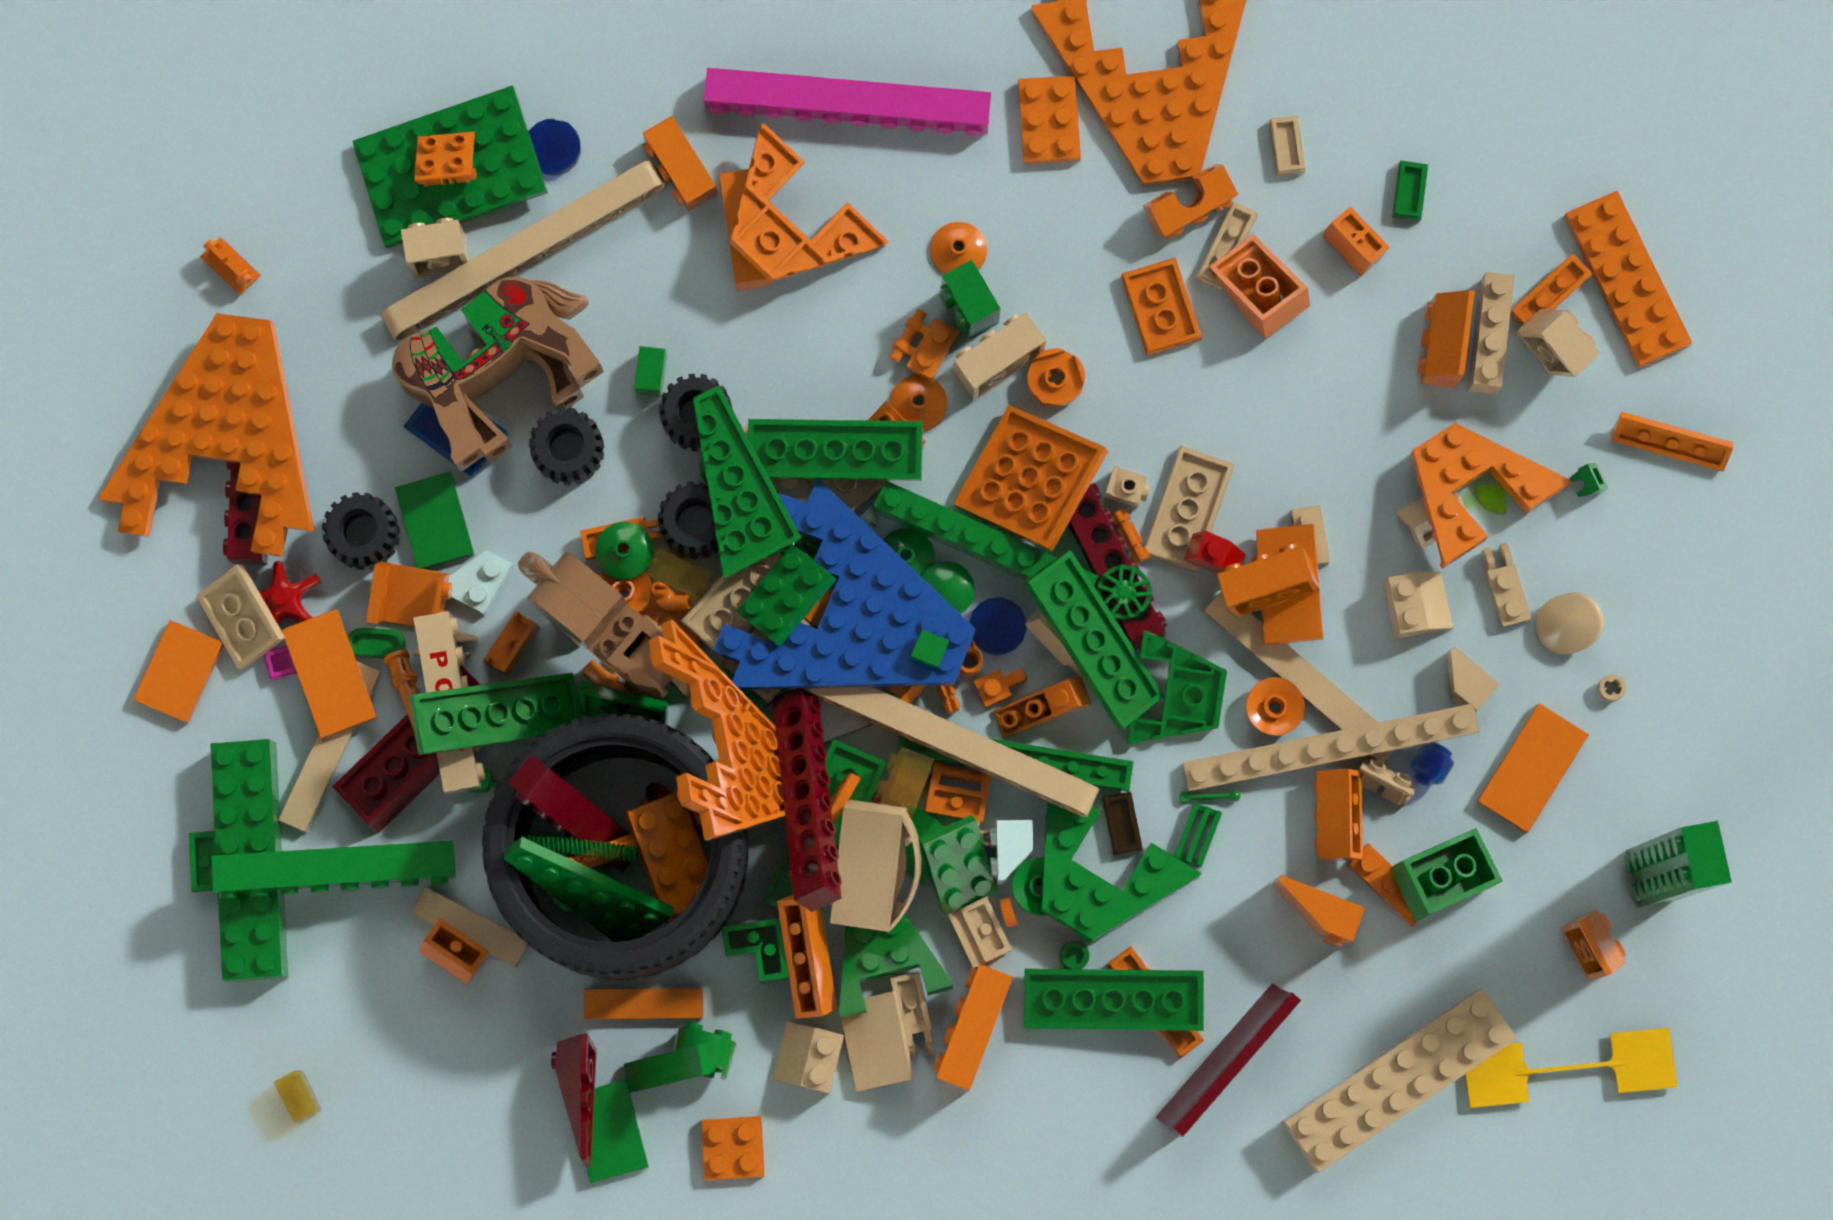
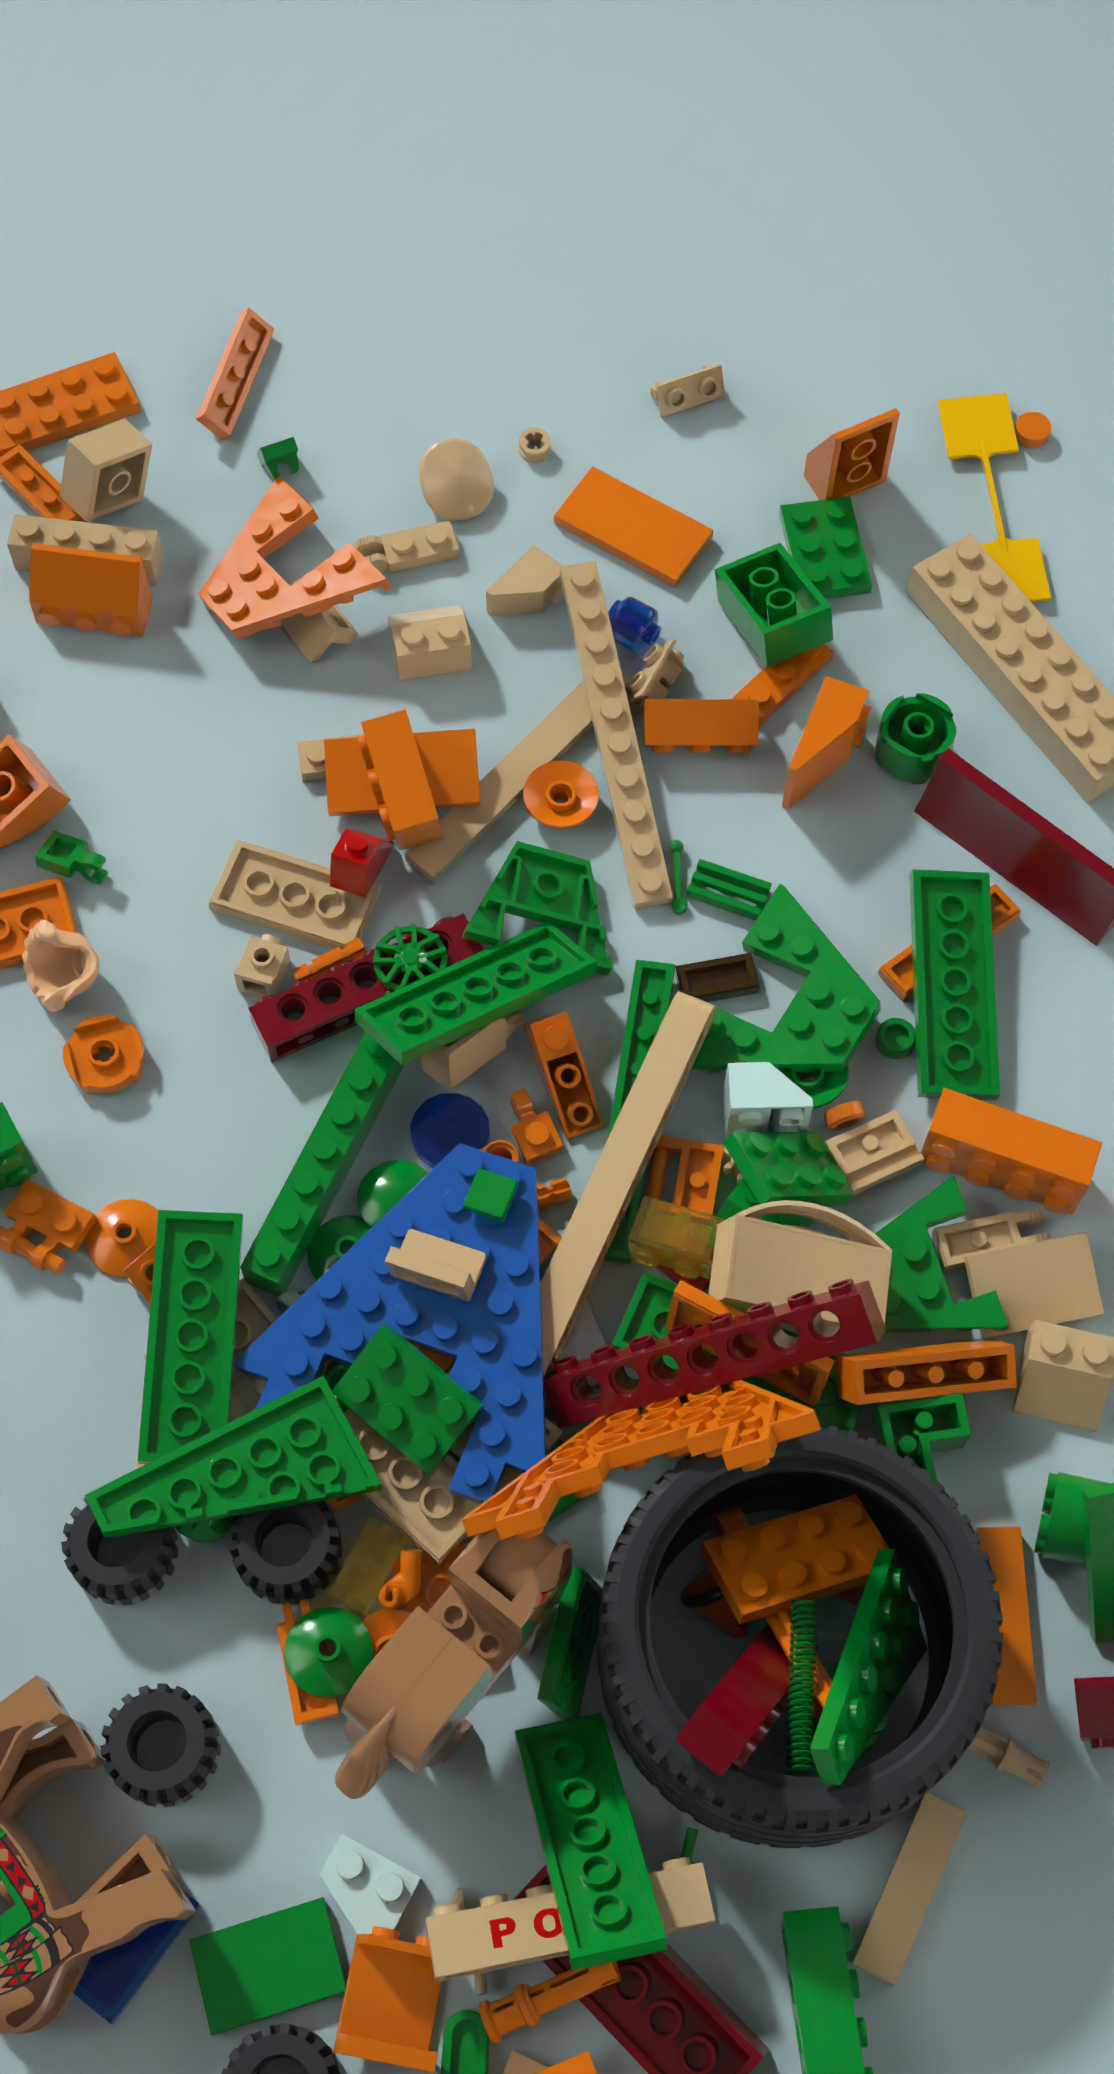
camera: 90 degrees left, 15 degrees down
(453, 951) = (954, 1907): orange brick -> none
(511, 643) = (468, 1832): orange hinge -> none
(551, 994) = (1009, 1757): none -> tan axle
(603, 678) = (526, 1679): orange pin -> none
(650, 371) = (50, 1618): green piece -> none
(880, 613) = (436, 1264): none -> tan panel
(998, 355) = (68, 1119): tan brick -> none
(1030, 477) = (245, 1078): orange plate -> none
(1121, 341) = (58, 964): none -> light nougat hair
(1218, 339) = (68, 854): none -> green plate
(1345, 980) = (914, 736): none -> green brick
(1491, 498) = (296, 560): clear neon green tile -> none
(1515, 924) = (827, 545): none -> green plate
(1642, 1107) = (1032, 429): none -> orange tile
(1665, 804) = (689, 390): none -> tan hinge
(1678, 864) = (770, 315): green brick -> none

